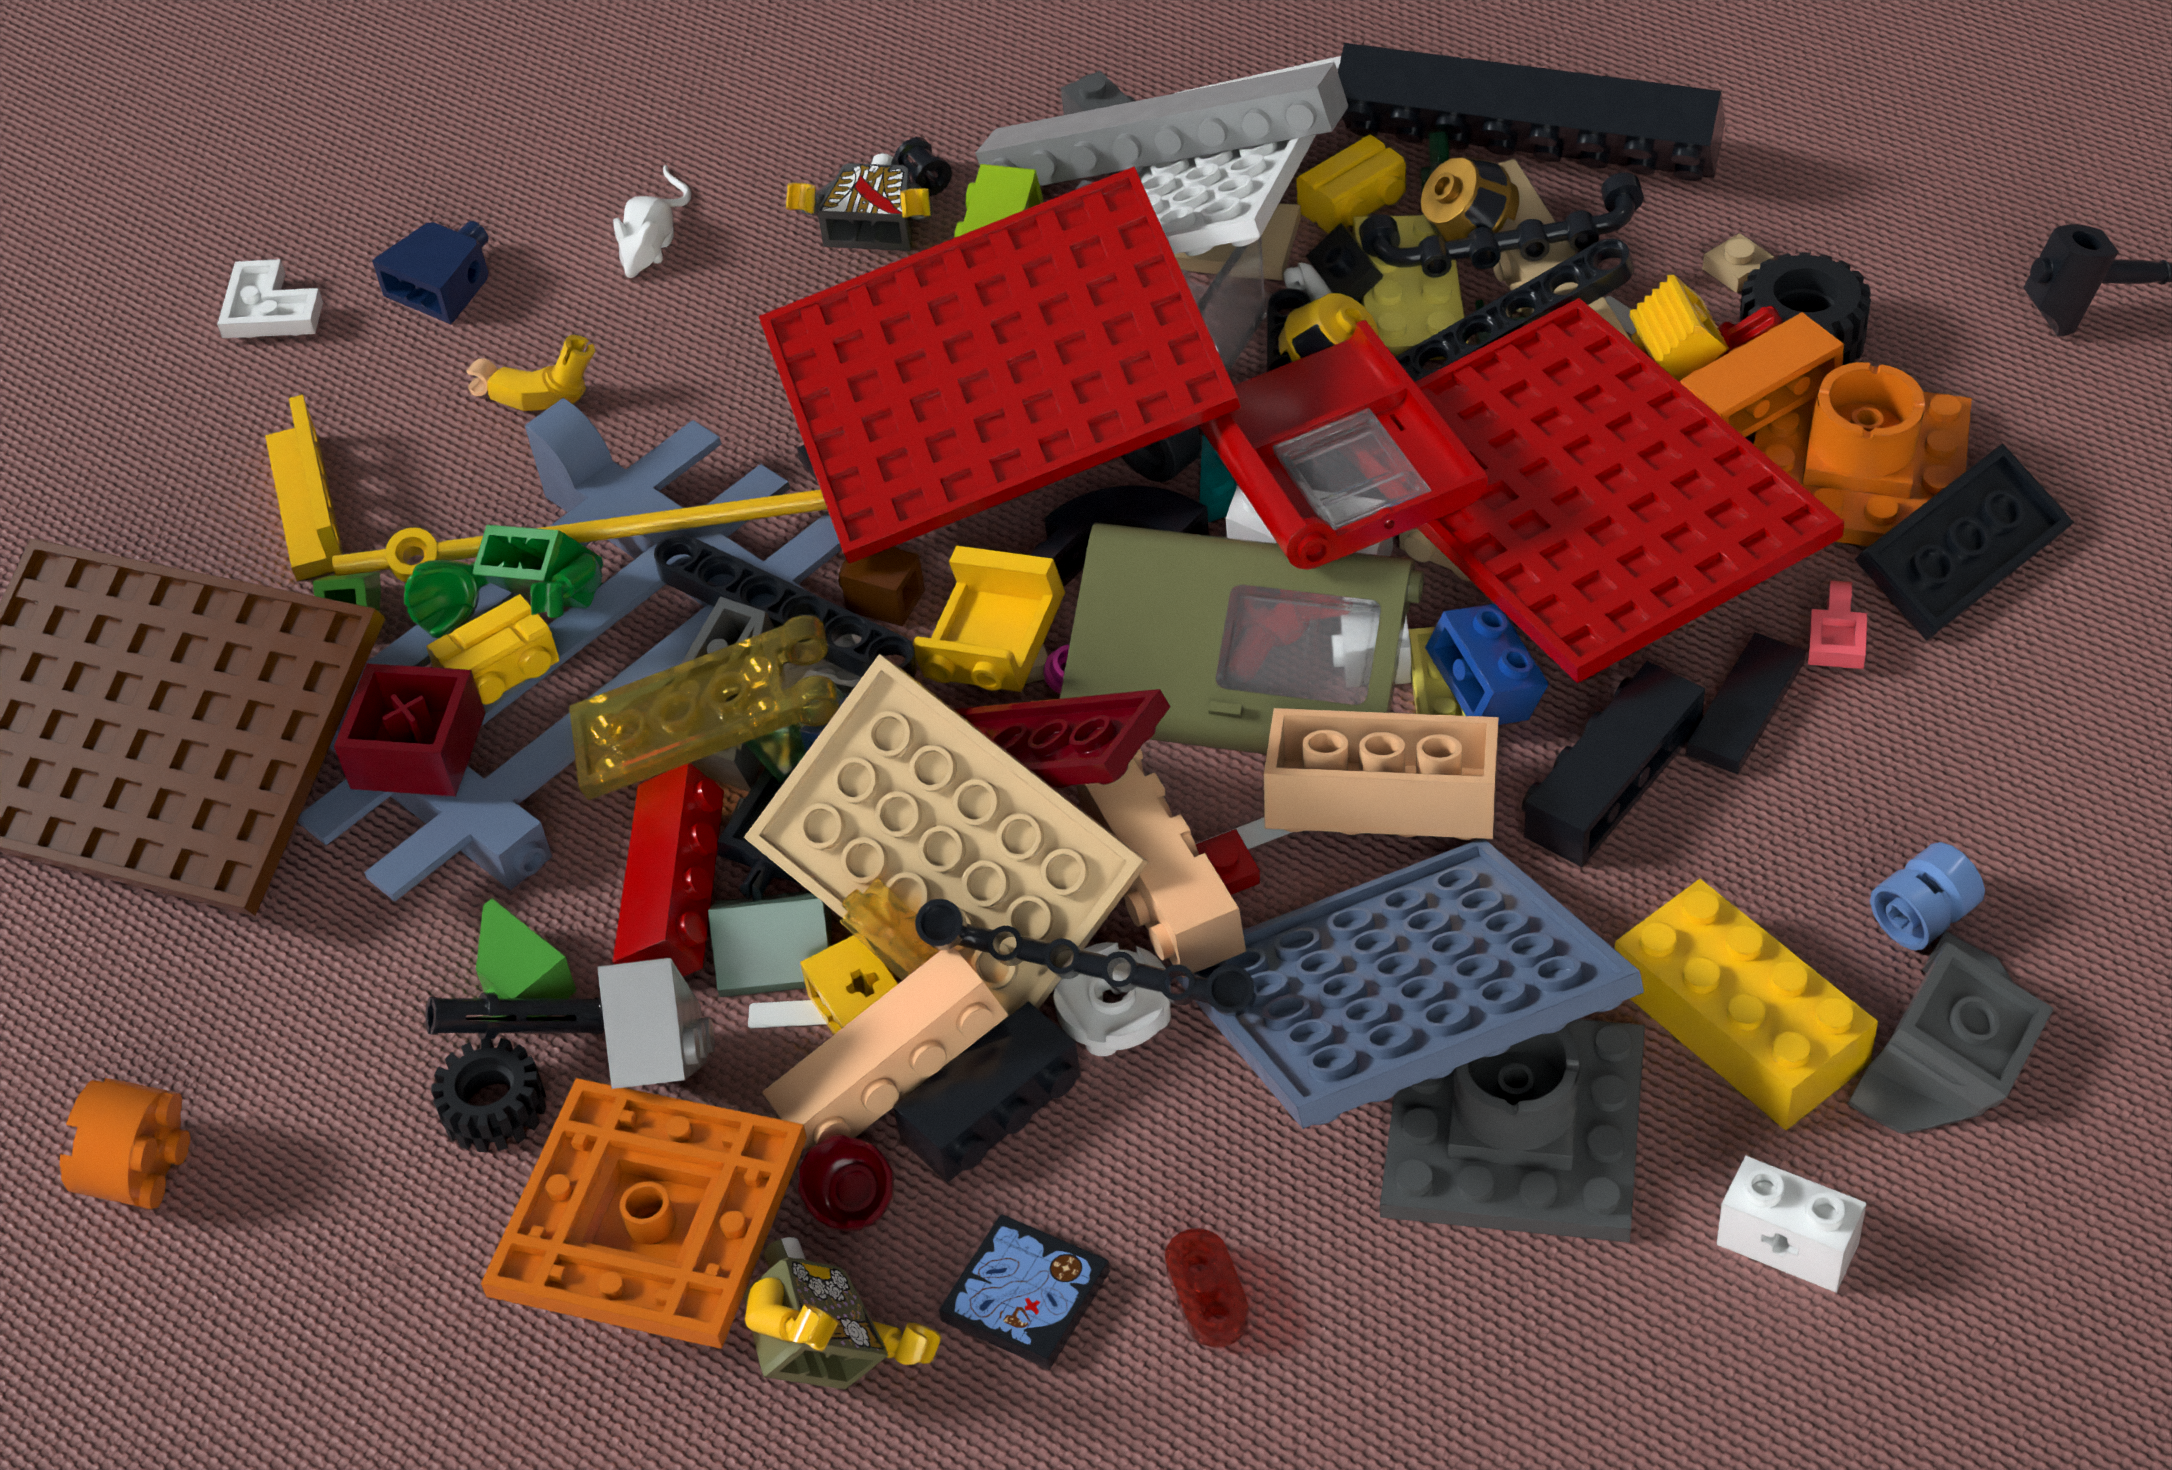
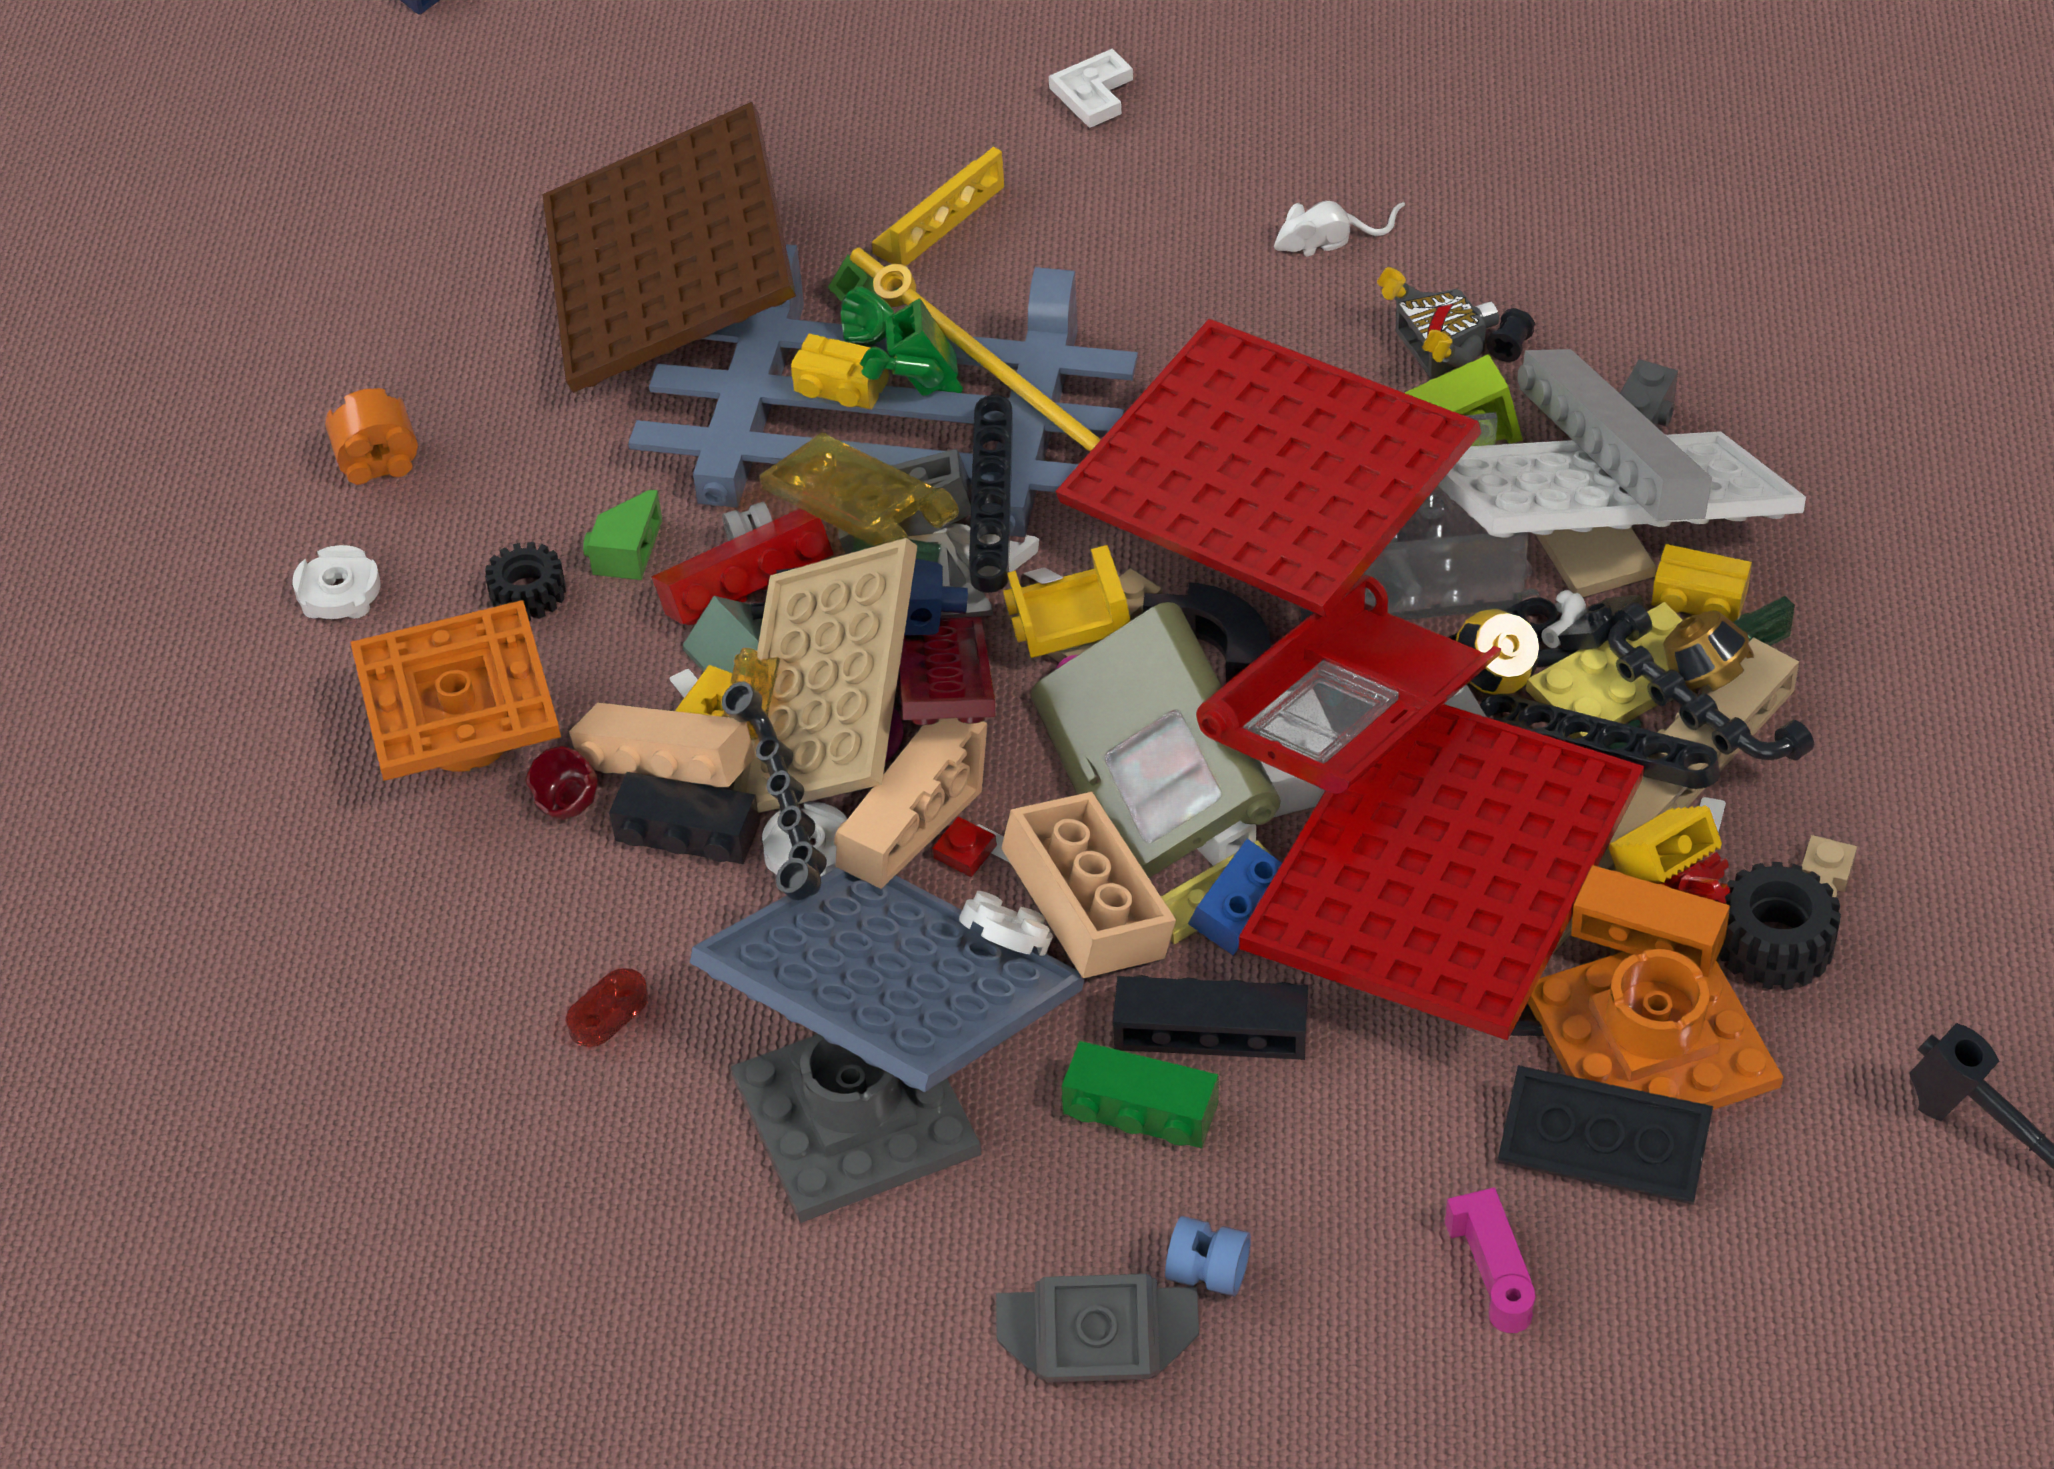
camera: 55 degrees right, 0 degrees up
(311, 1321) = (348, 599): none -> white plate
(410, 729) = (741, 368): dark red brick -> none
(435, 269) = (1192, 148): dark blue torso -> none
(450, 1014) = (566, 543): black pin -> none
(538, 388) = (1121, 265): yellow arm -> none
(605, 854) = (741, 523): none -> light grey wheel
(652, 1024) = (581, 618): light grey wedge -> none
(816, 1327) = (440, 819): torso -> none
(883, 585) = (1076, 536): reddish brown brick -> none
(927, 627) = (1043, 575): none -> white sticker
(1024, 1291) = (551, 919): tile -> none
(1385, 861) = (1006, 927): none -> white plate
(1533, 111) = (1859, 648): black brick -> none
(1697, 839) = (1140, 1094): none -> green brick
(1745, 703) = (1339, 1074): black tile -> none
(1747, 1004) = (1031, 1187): yellow brick -> none
(1791, 1223) = (853, 1297): white brick -> none
(1836, 633) = (1446, 1098): coral plate -> none
(2060, 686) = (1497, 1256): none -> dark pink leg

